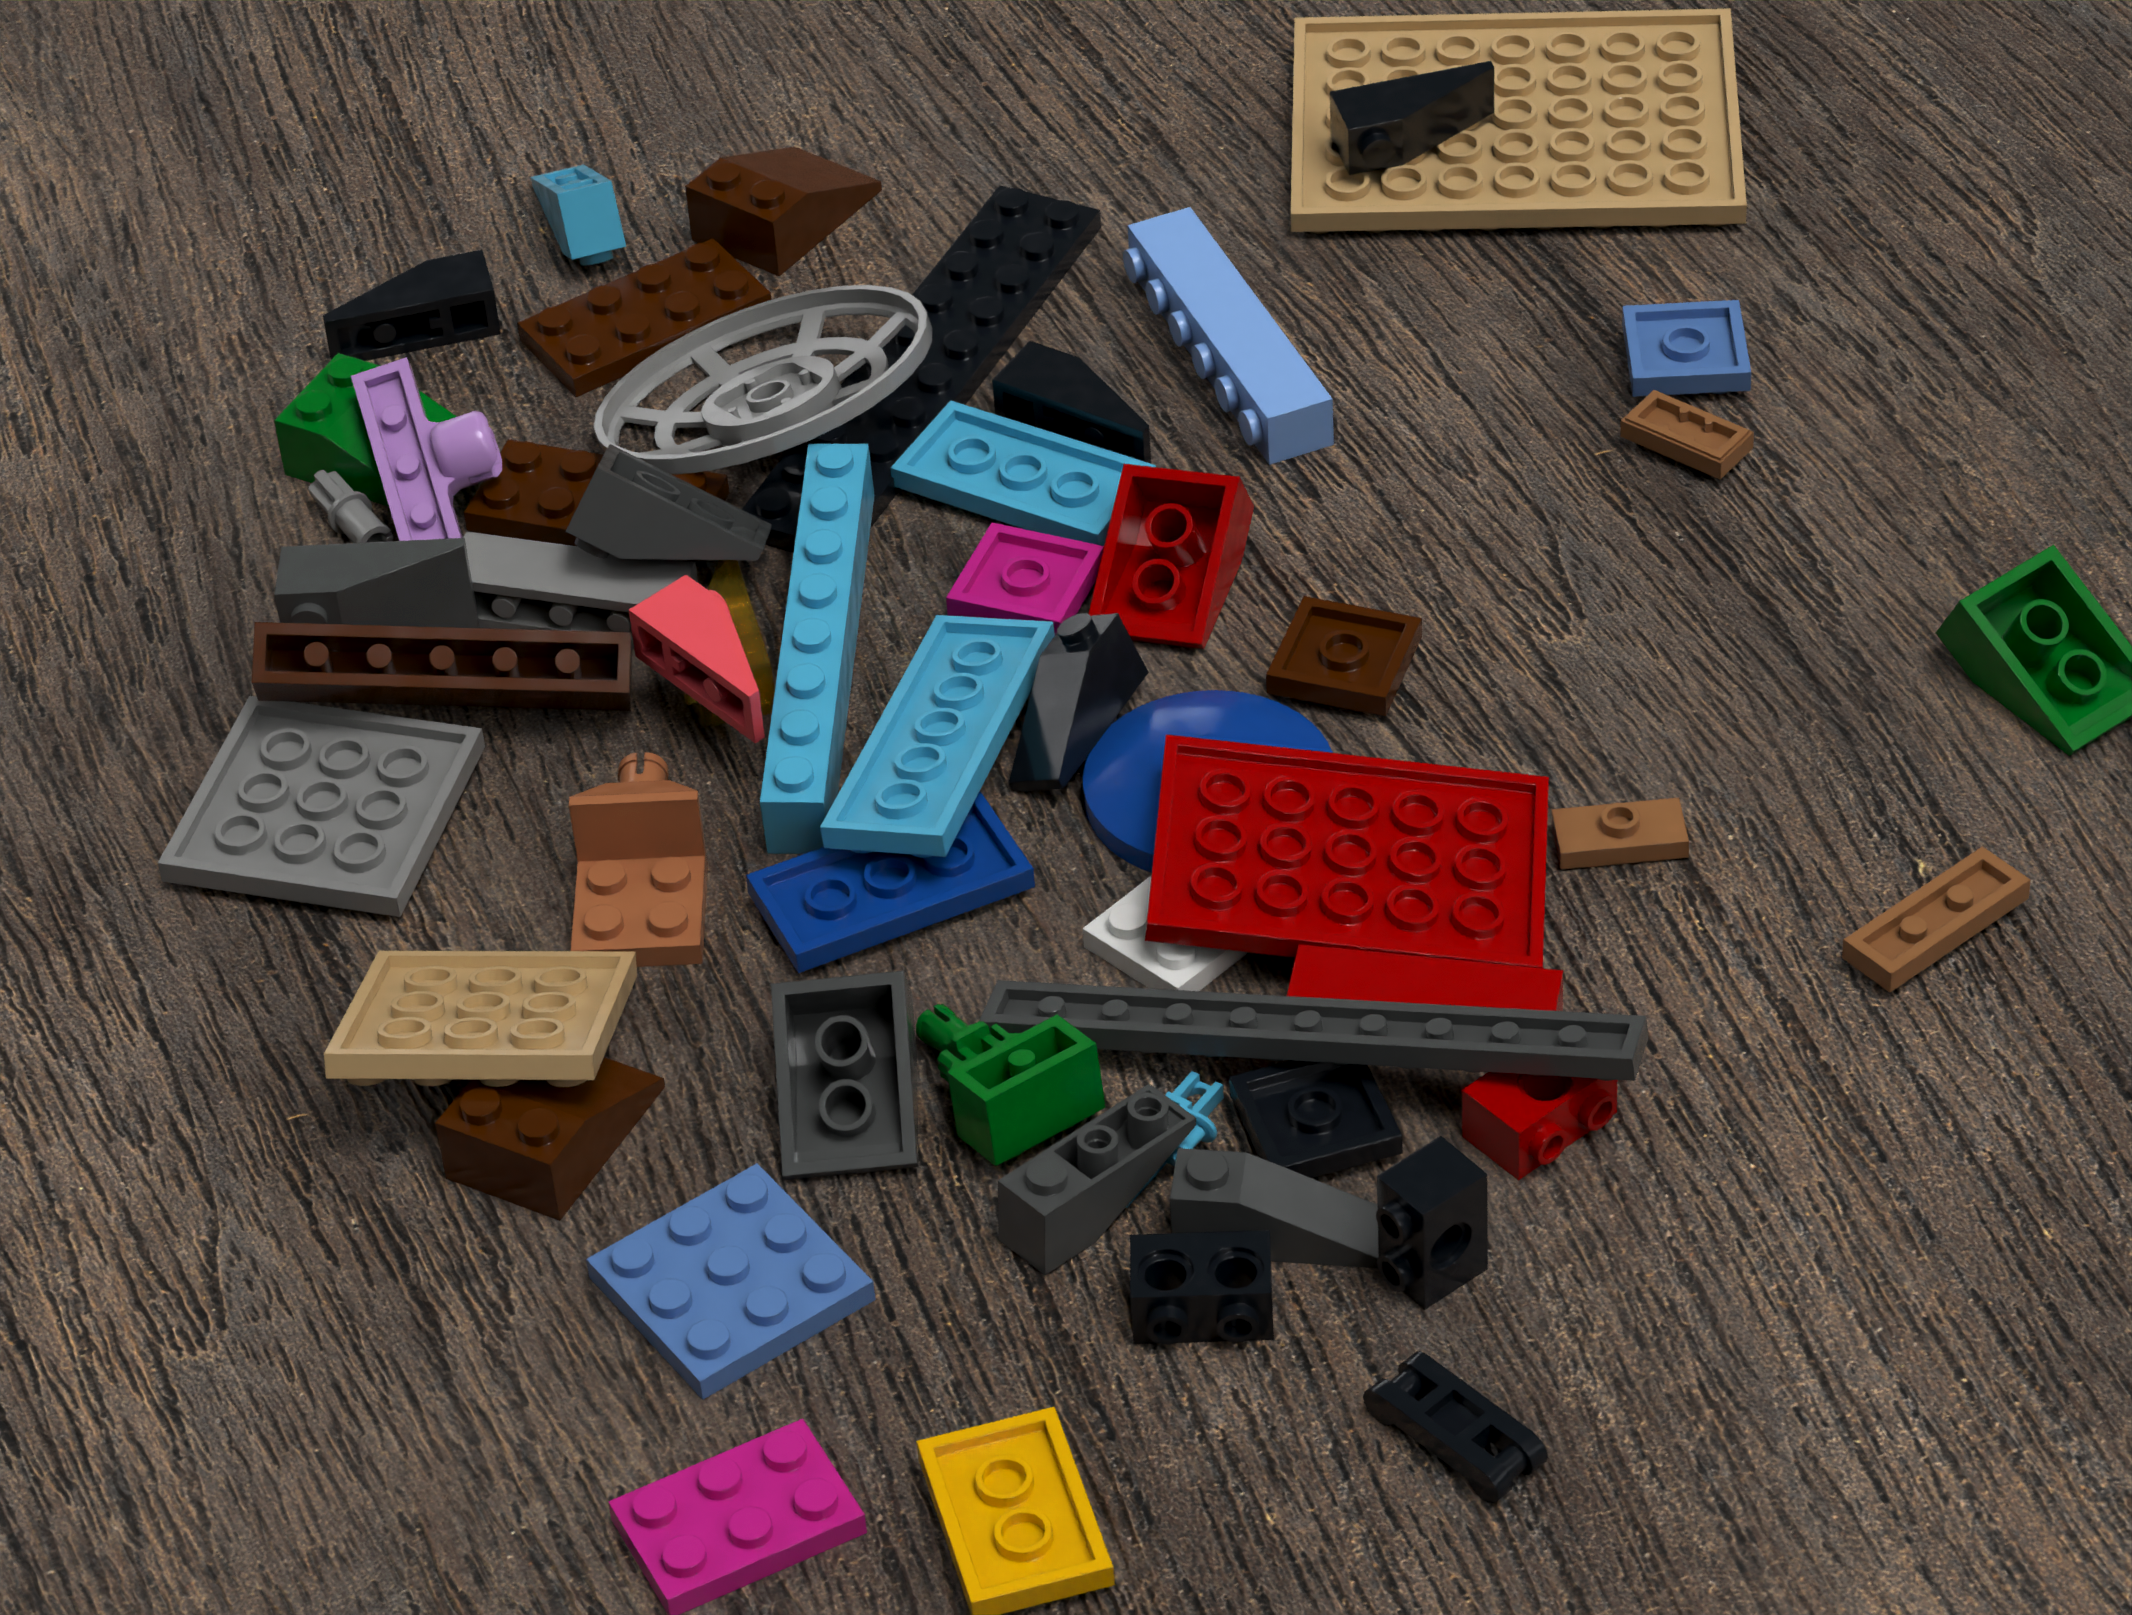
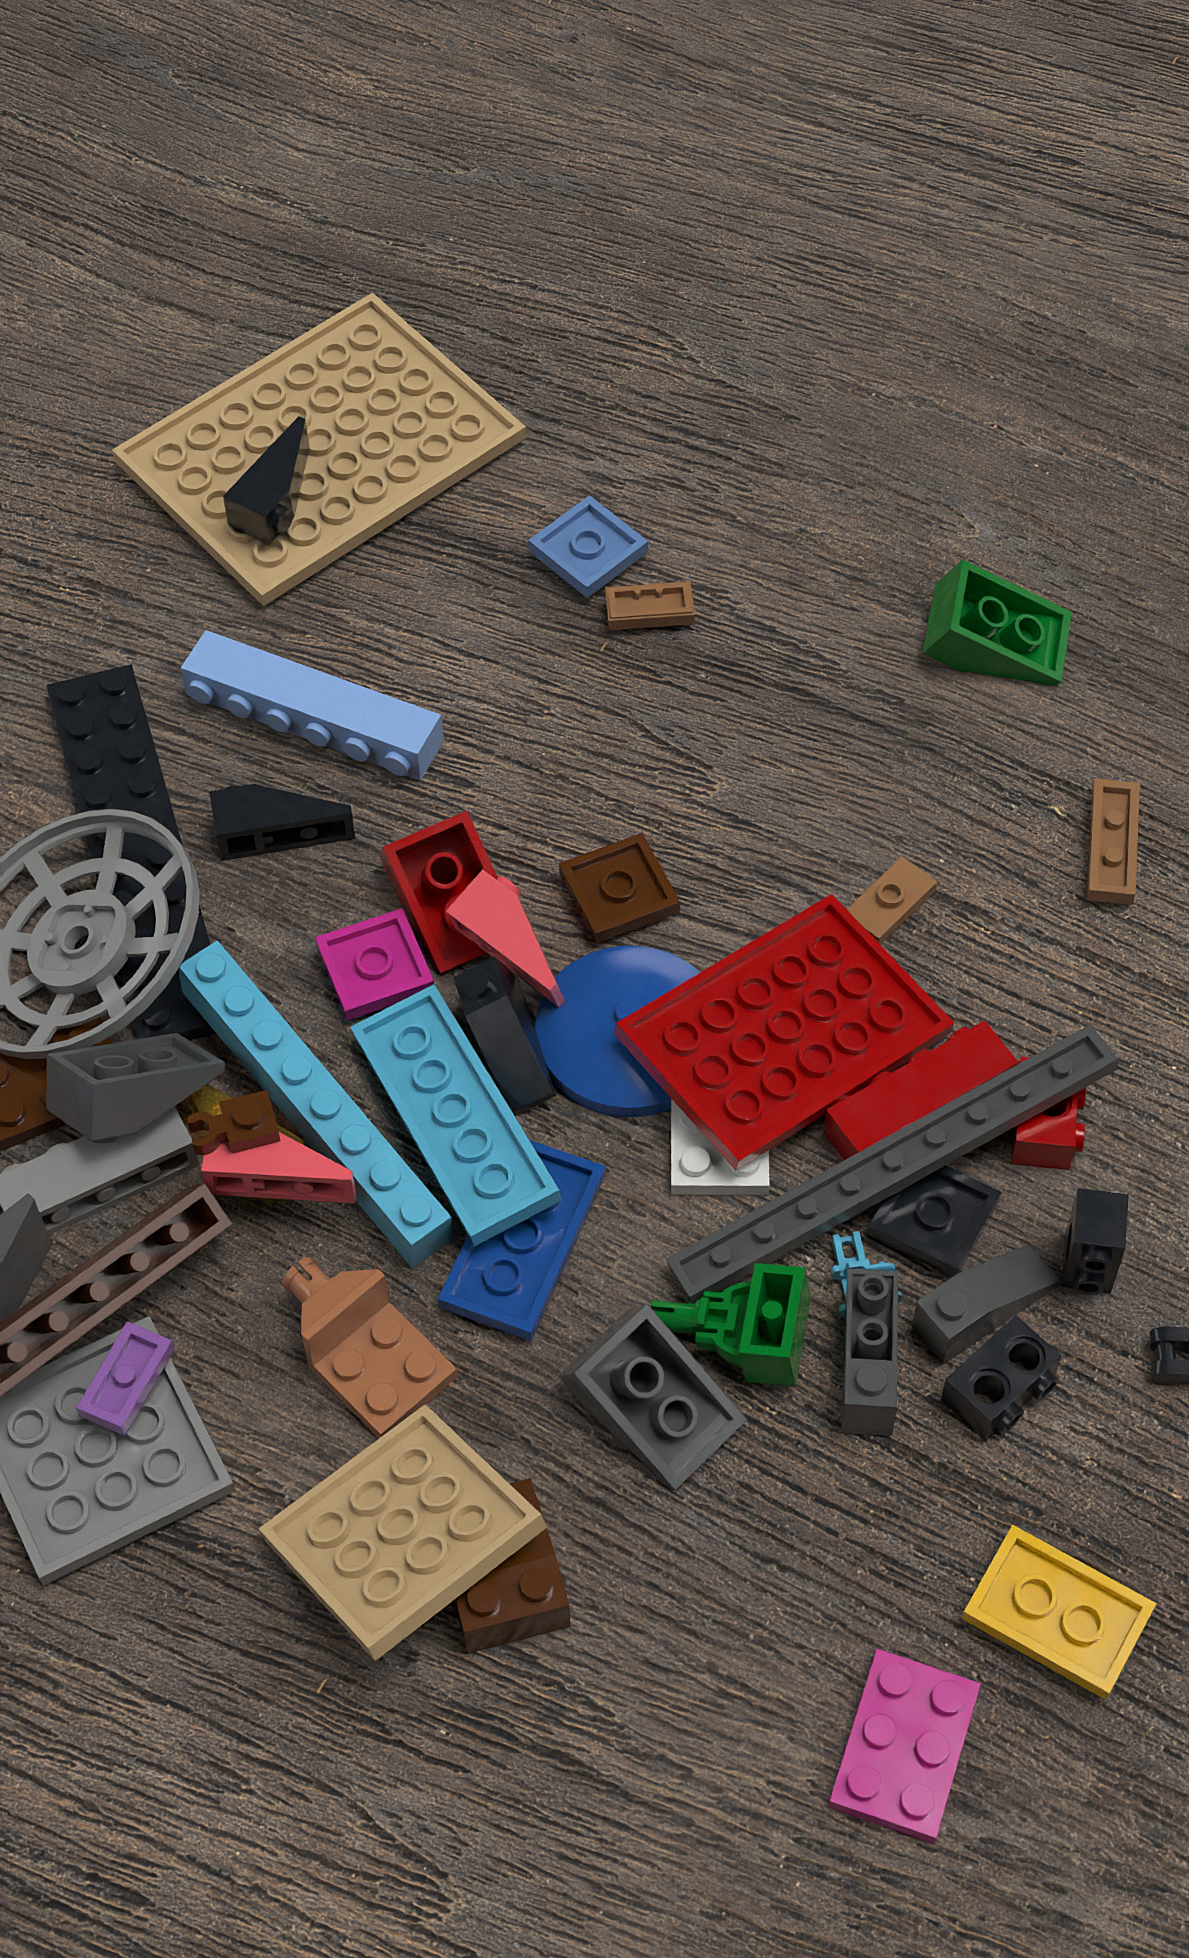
camera: 45 degrees left, 15 degrees up
(396, 751) = (125, 1378): none -> medium lavender plate
(702, 592) = (244, 1122): none -> reddish brown plate
(730, 1280) = (723, 1587): medium blue plate -> none
(1014, 473) = (292, 889): medium azure plate -> none
(1165, 609) = (497, 923): none -> coral slope

